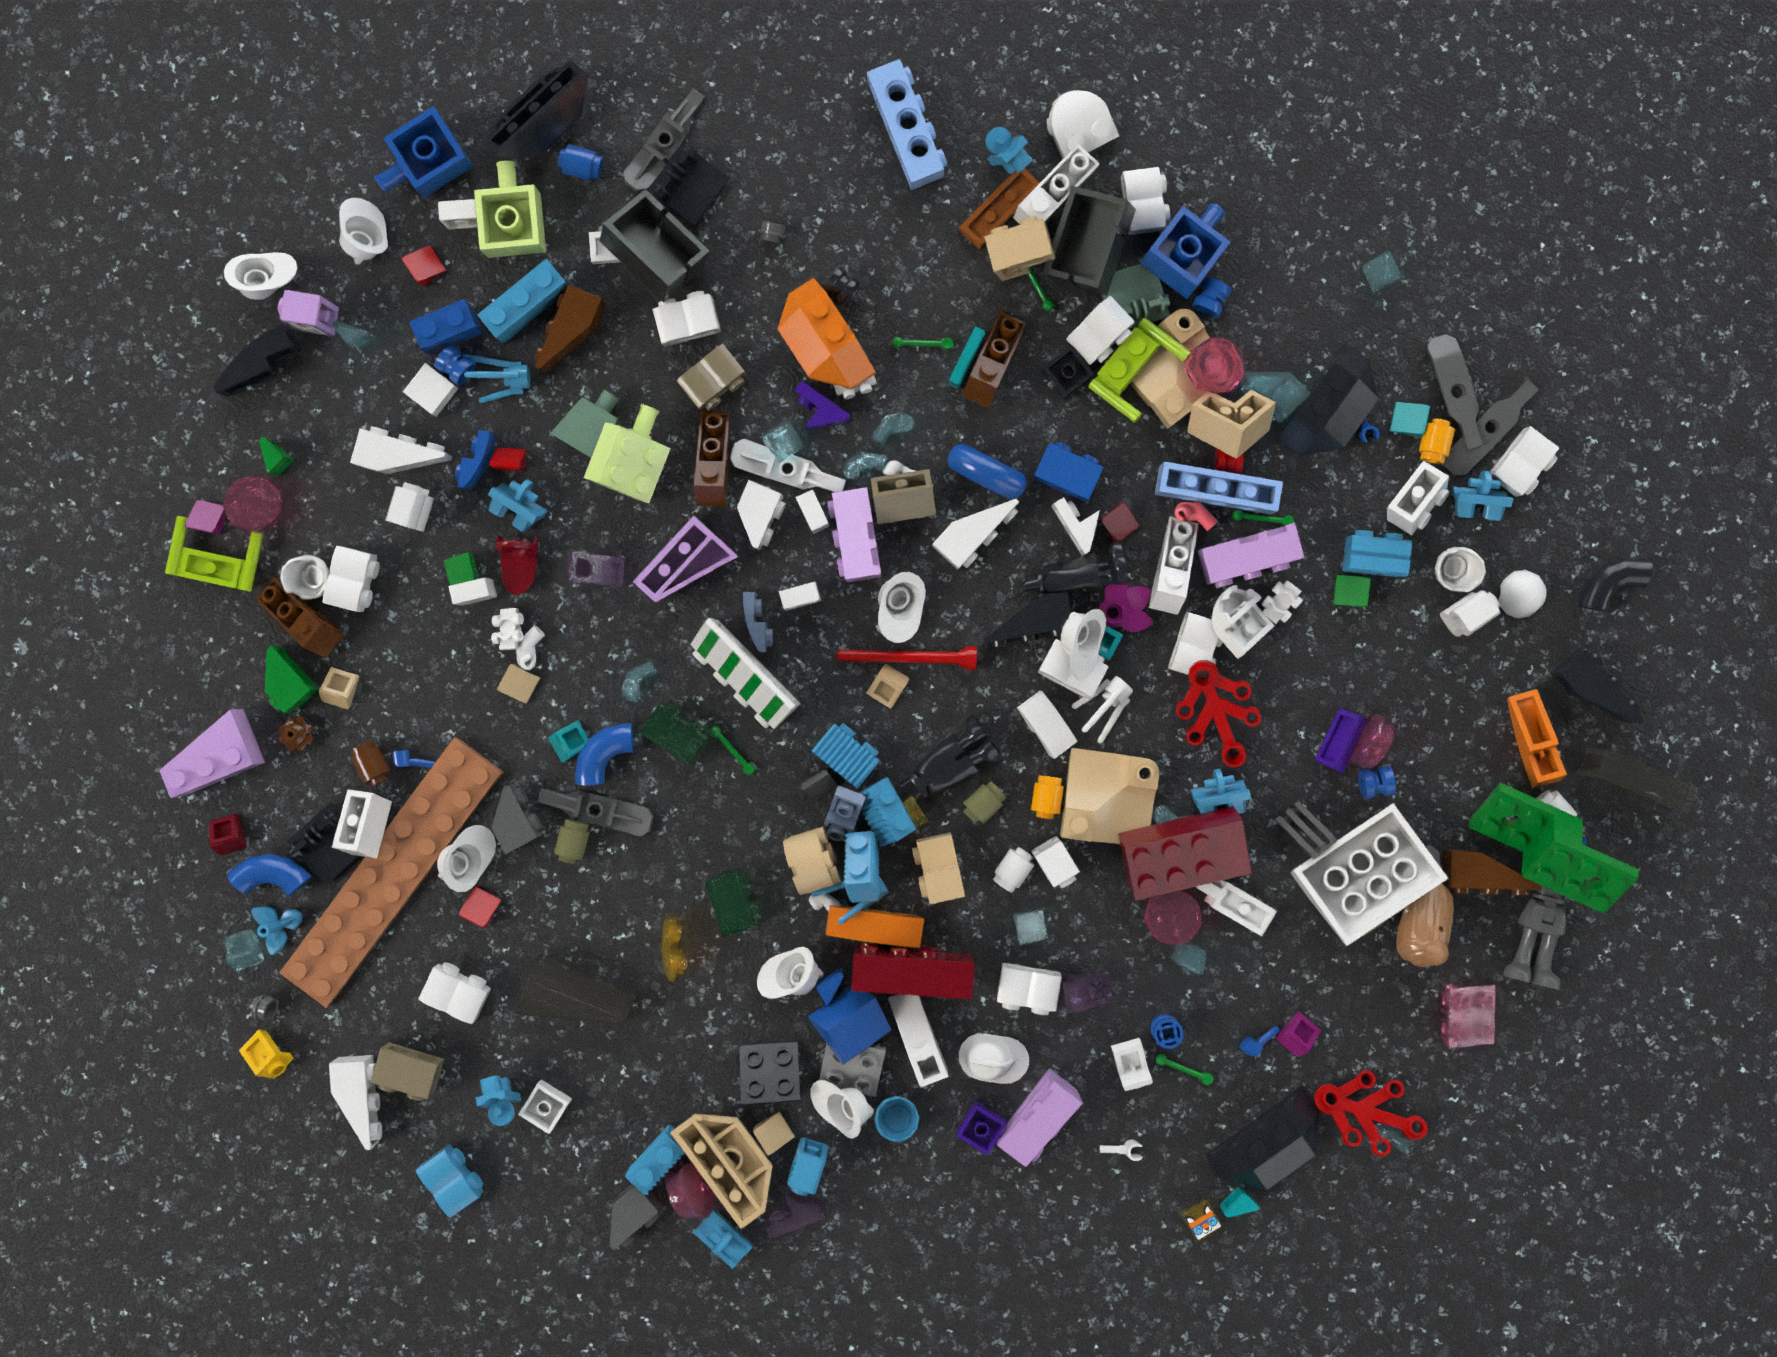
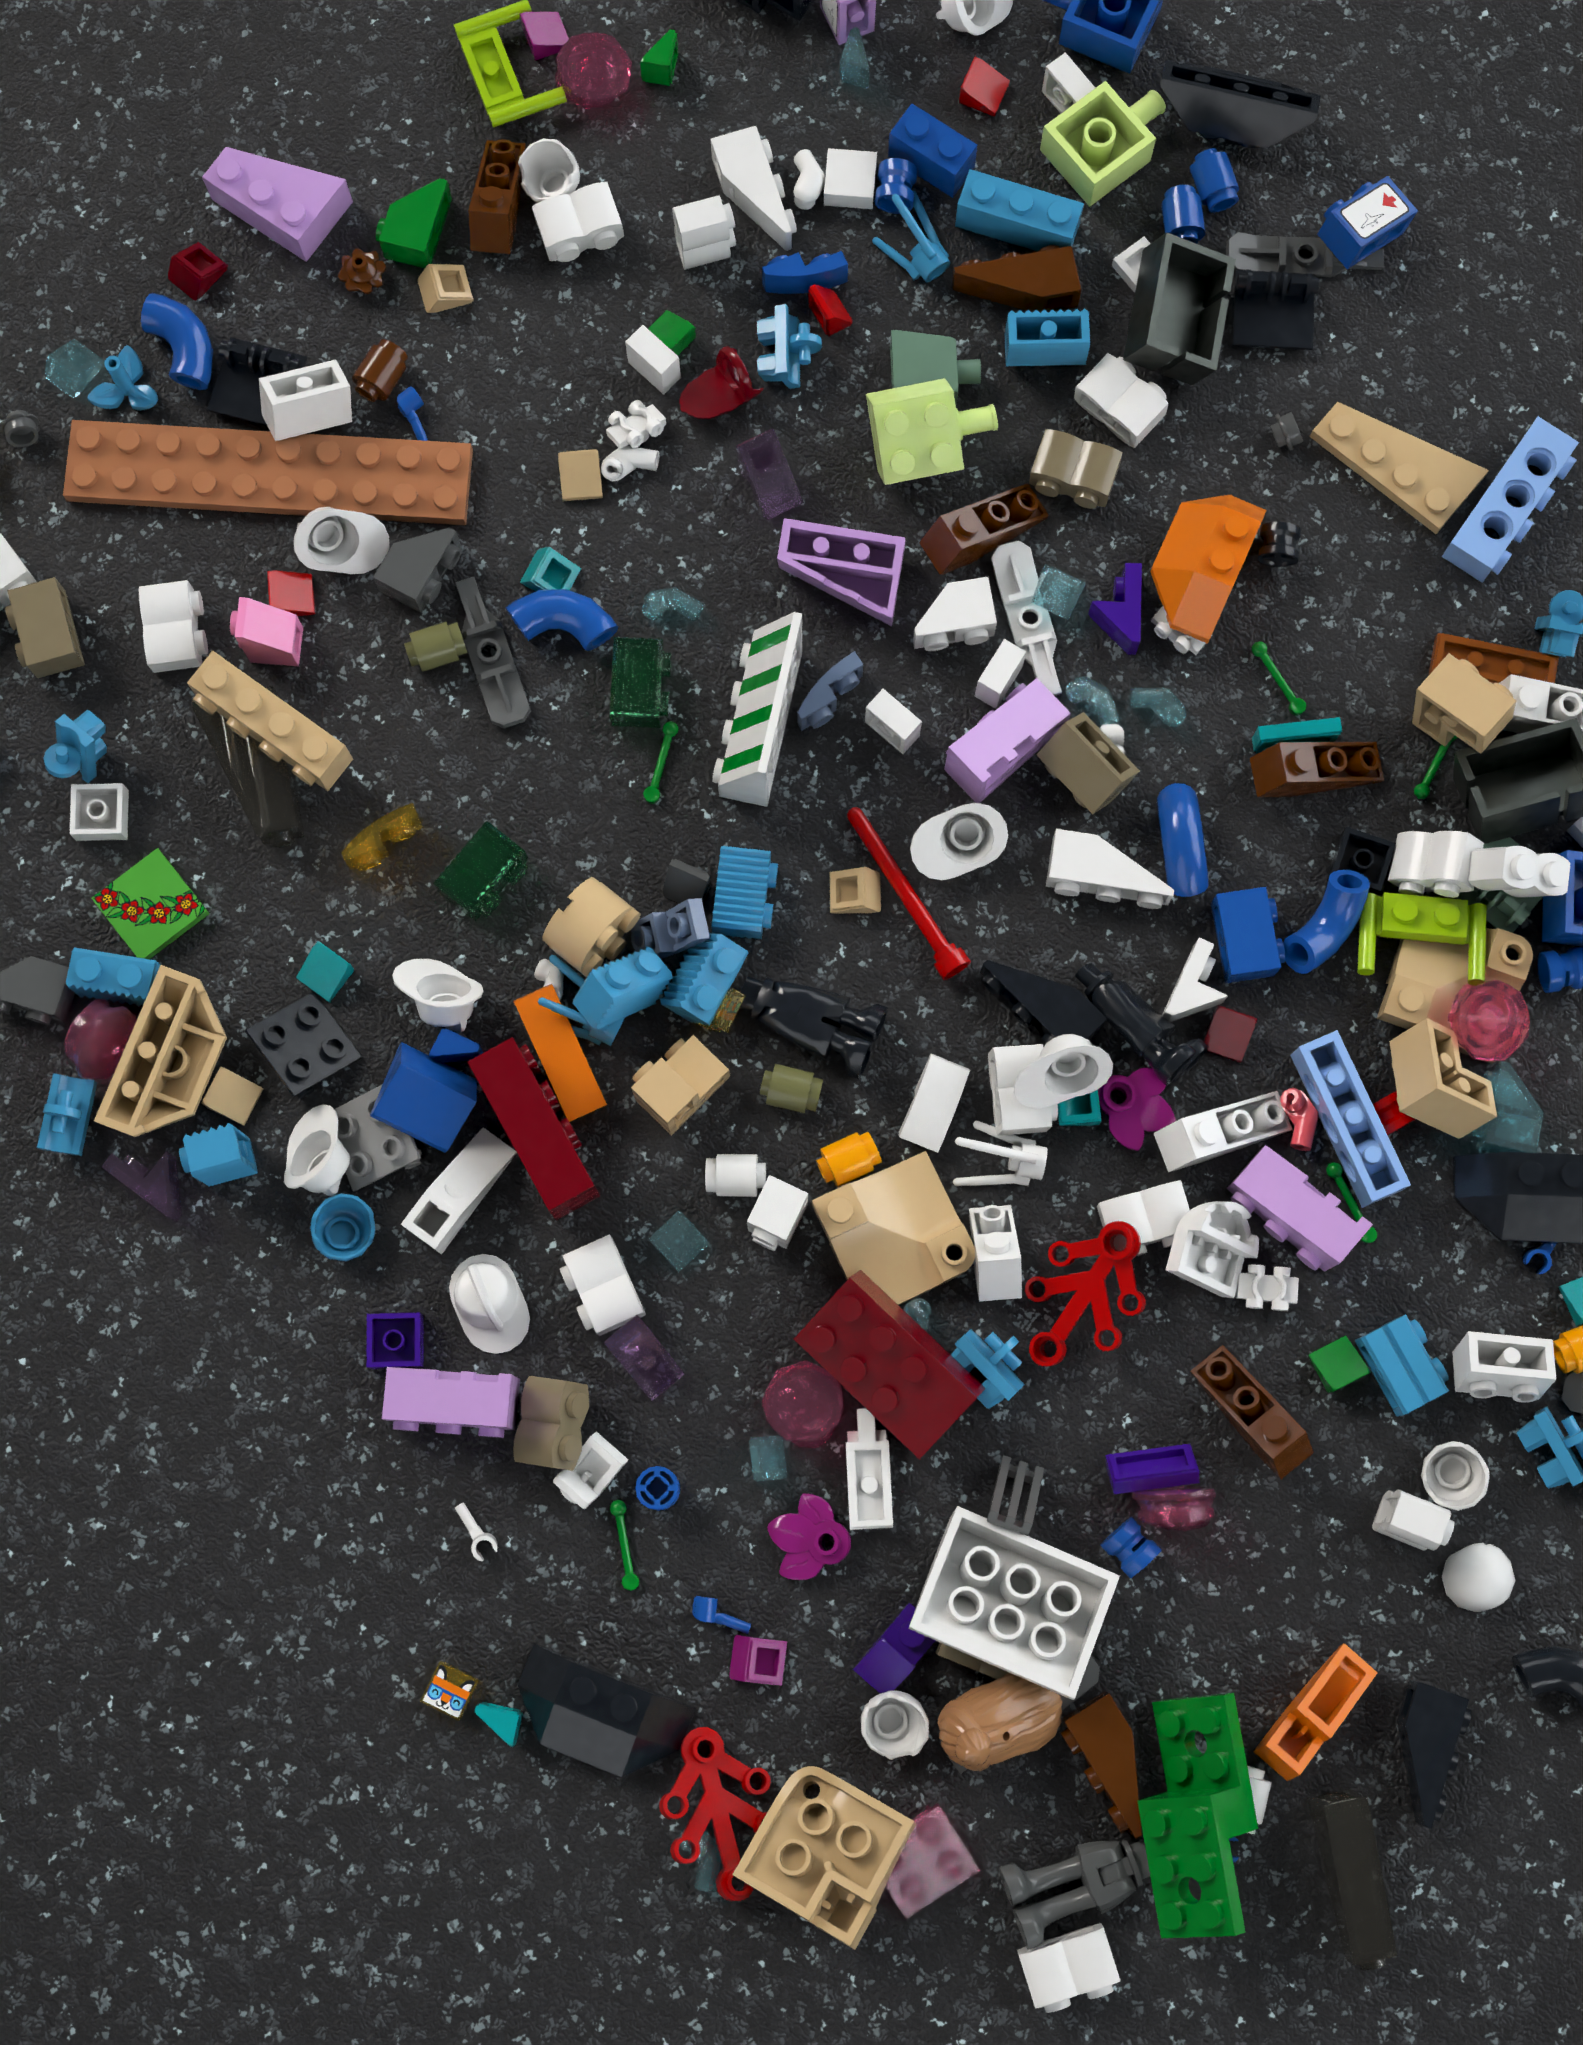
camera: 60 degrees right, 10 degrees down
(416, 416) = (810, 180): none -> white arm
(499, 940) = (267, 633): none -> bright pink slope
(559, 976) = (269, 720): none -> tan brick
(592, 199) = (1183, 213): none -> blue brick
(618, 339) = (1047, 338): none -> dark azure brick
(623, 1110) = (150, 905): none -> bright green tile
(670, 88) = (1366, 221): none -> brick
(732, 1032) = (324, 971): none -> teal slope
(842, 174) = (1403, 467): none -> tan wing
(1090, 1069) = (551, 1423): none -> dark tan brick
(1094, 418) = (1330, 924): none -> blue cylinder
(1143, 288) = (1519, 871): none -> white brick
(1158, 747) = (996, 1253): none -> white slope
(1248, 966) = (802, 1538): none -> magenta plate
(1345, 660) = (1253, 1412): none -> reddish brown slope
(1348, 961) = (893, 1654): none -> dark purple slope
(1387, 982) = (894, 1724): none -> white hair
(1434, 1070) = (826, 1853): none -> tan slope
(1581, 971) = (1069, 1967): none -> white brick

